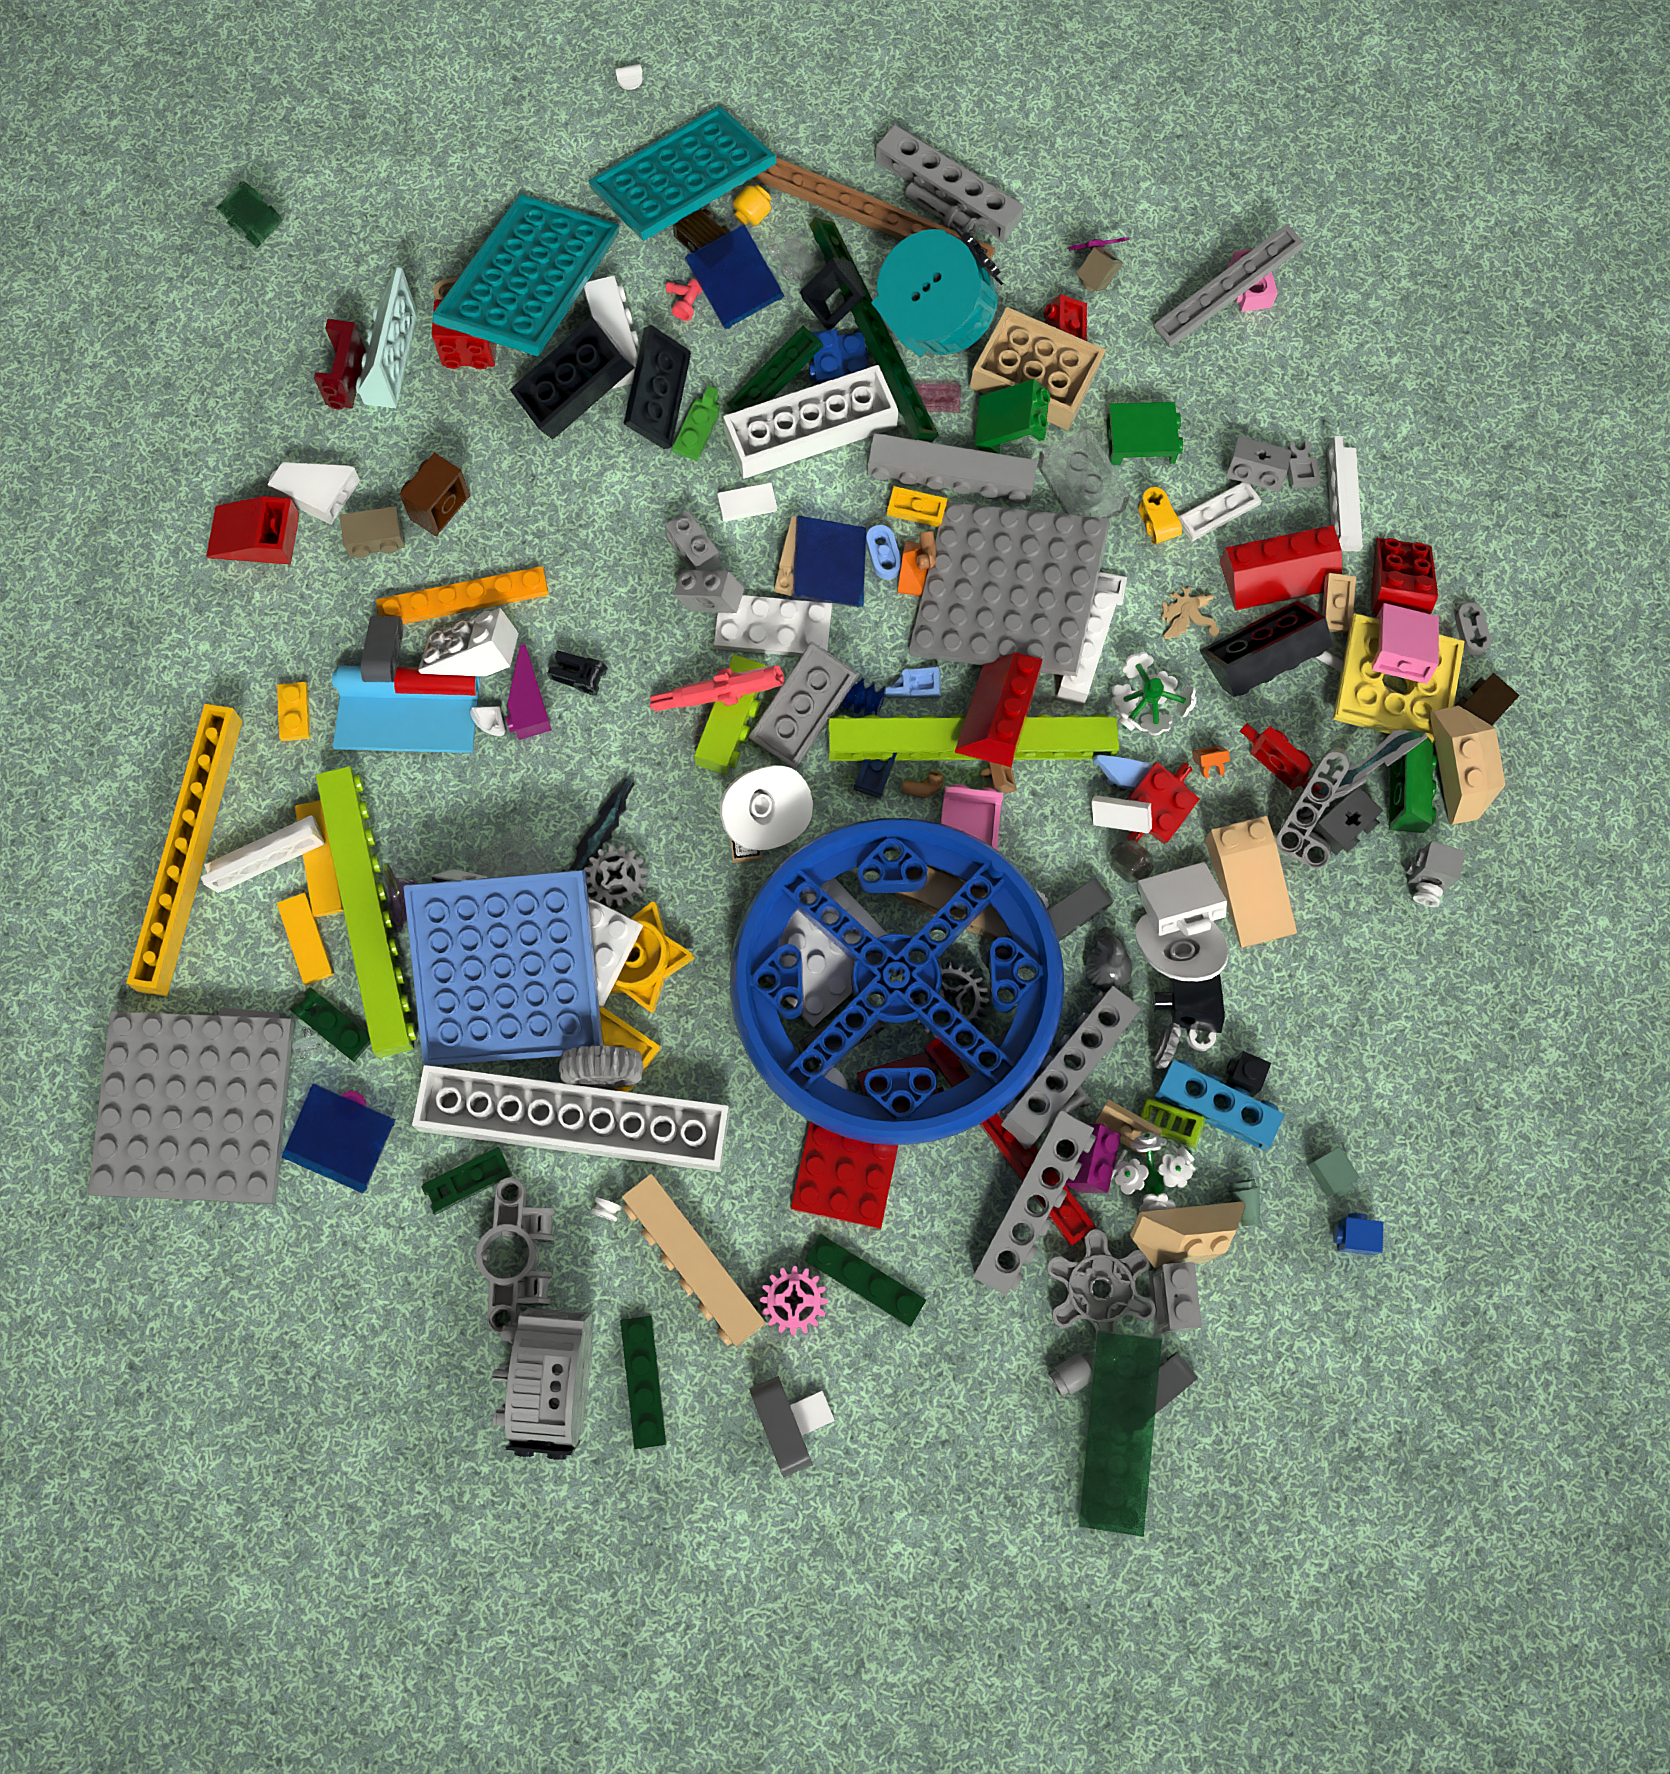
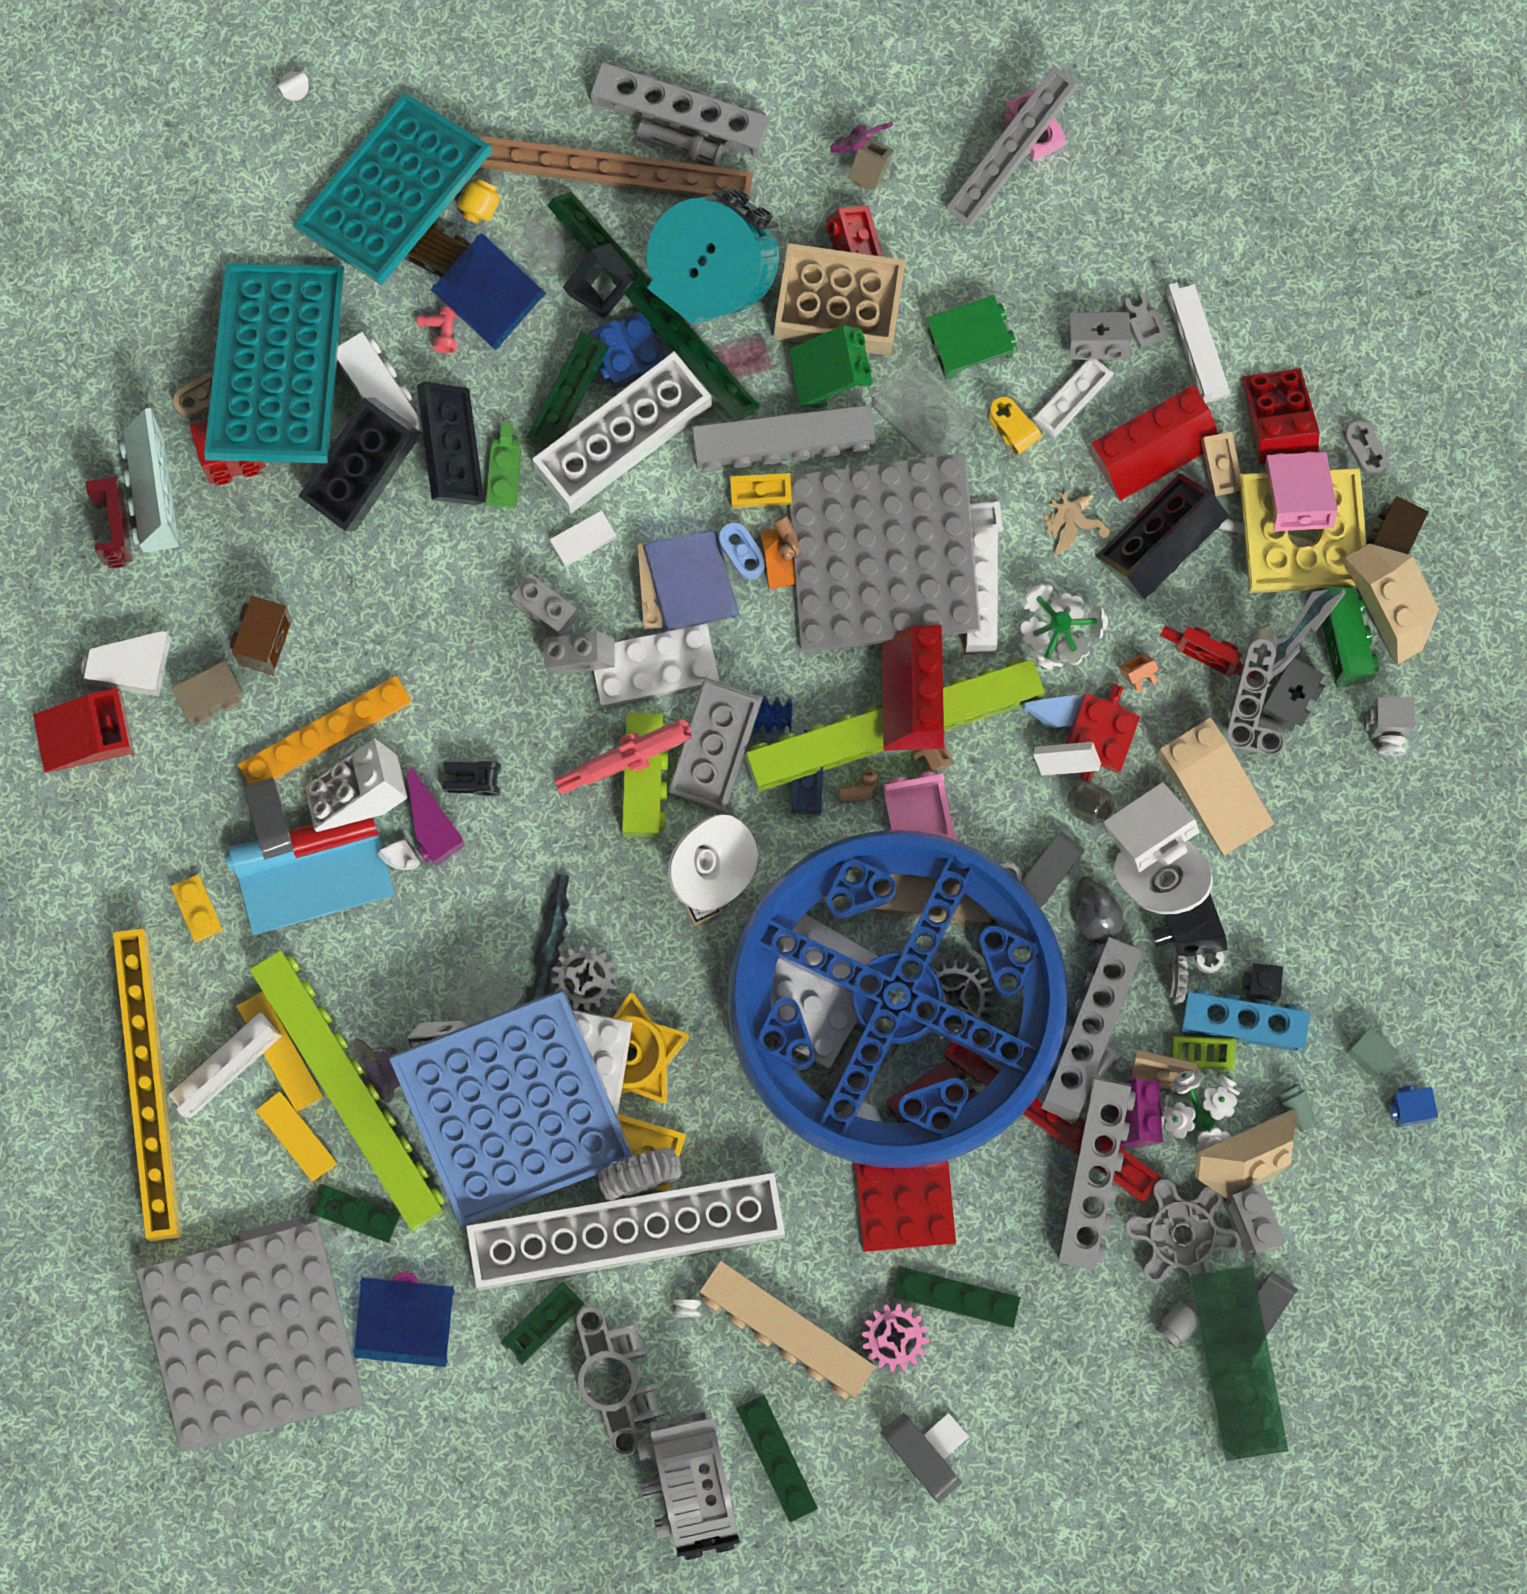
camera: 15 degrees left, 5 degrees up
(917, 684) = (820, 681): light blue slope -> none

